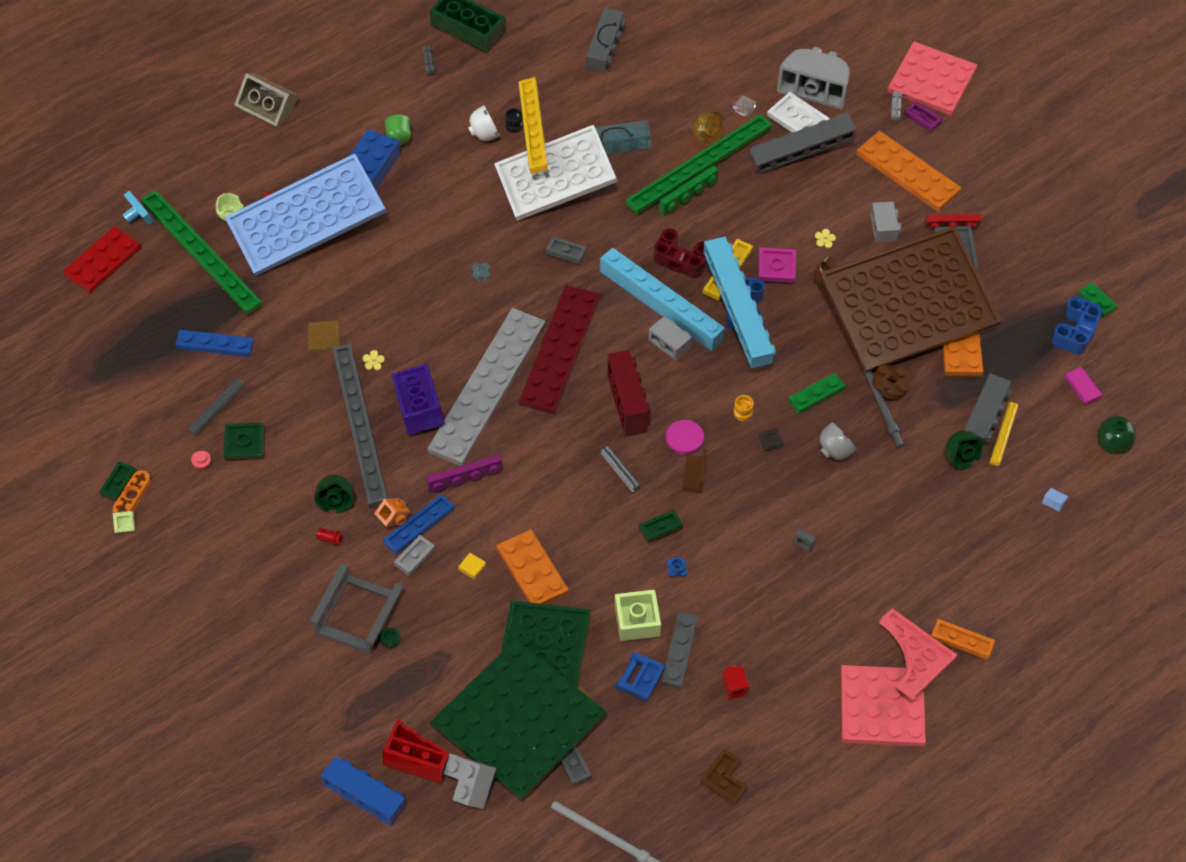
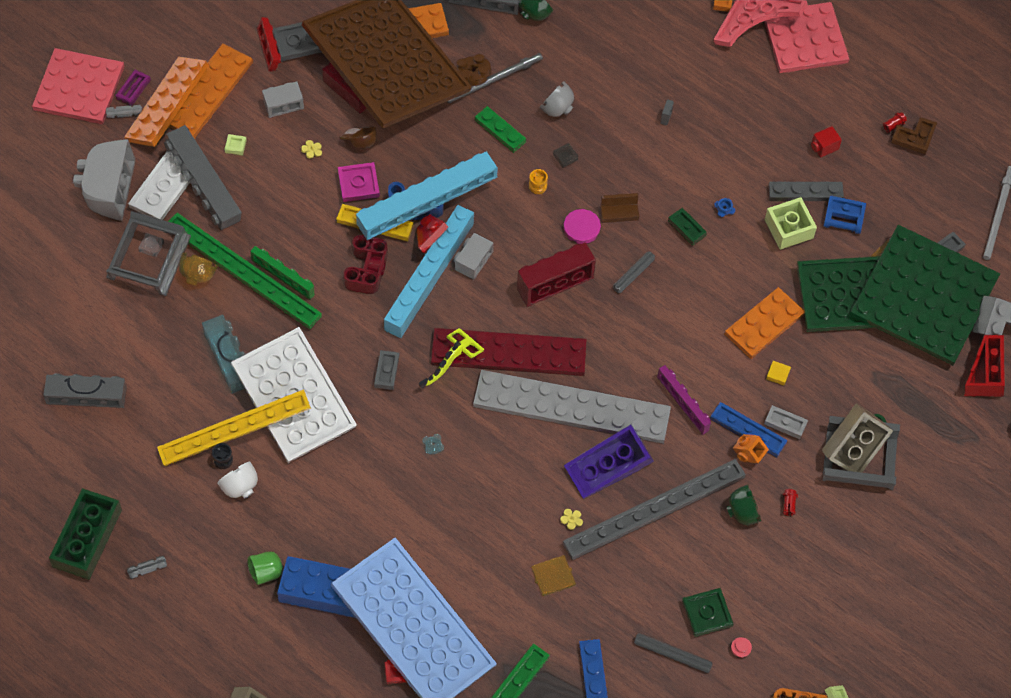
camera: 105 degrees left, 5 degrees up
(365, 596) = (857, 440): none -> dark tan slope
(567, 300) = (455, 351): none -> neon yellow piece
(701, 303) = (429, 231): none -> red wing
(732, 115) = (172, 259): none -> dark grey piece
(748, 762) = (891, 124): none -> red pin
(842, 182) = (235, 144): none -> yellowish green tile
(899, 134) = (166, 101): none -> orange plate

